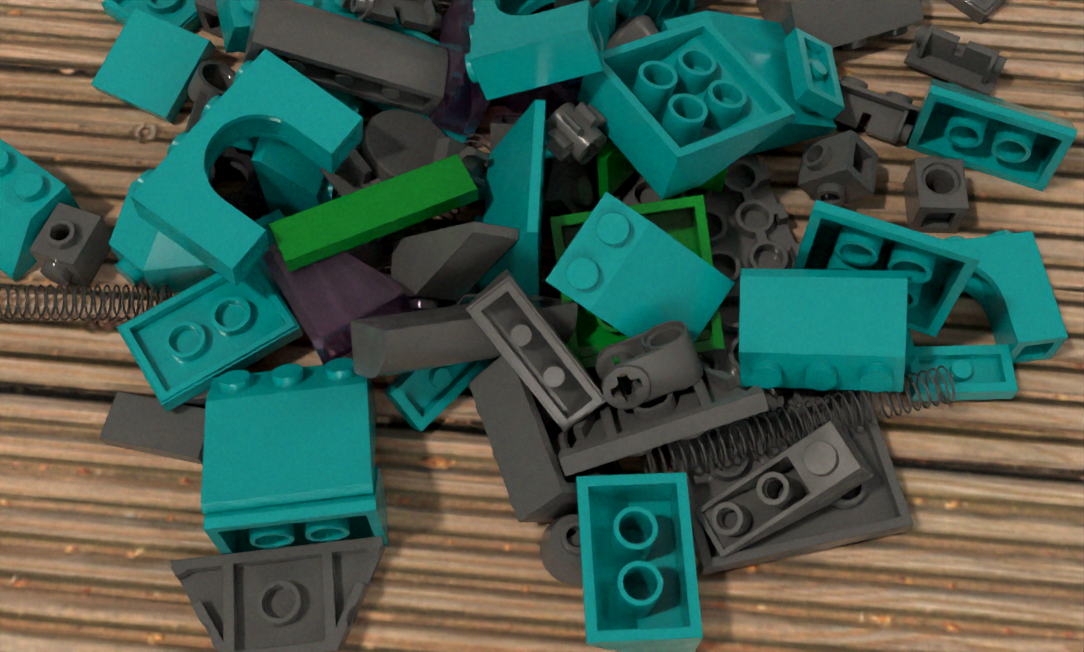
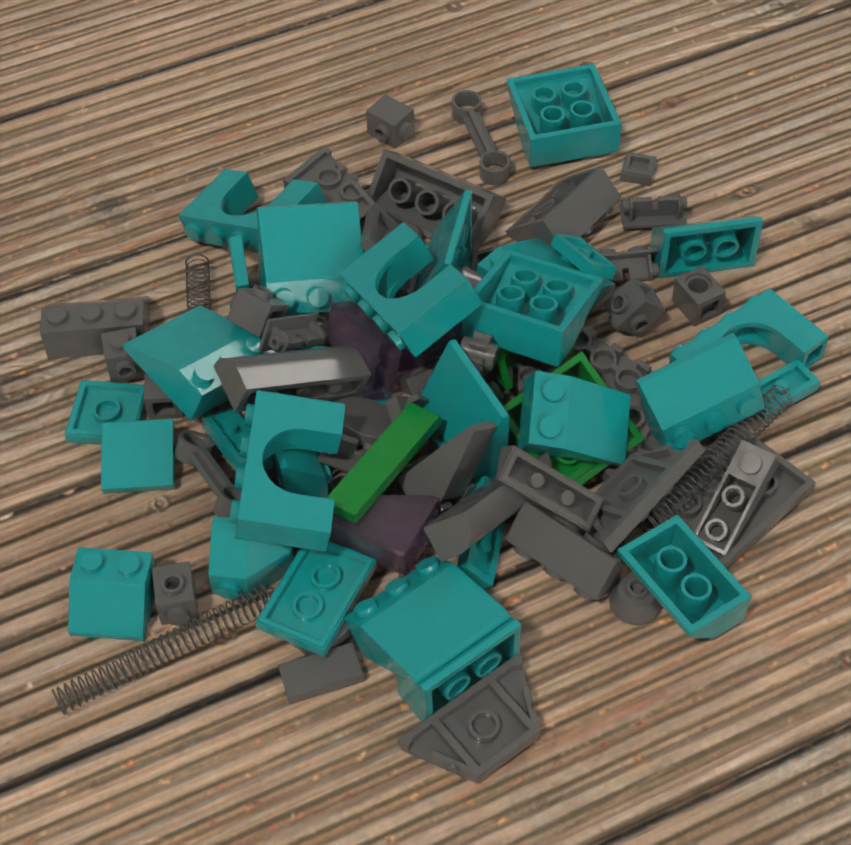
camera: 30 degrees left, 10 degrees down
(654, 363) = (618, 465): dark grey piece -> none
(855, 241) = (691, 330): teal slope -> none

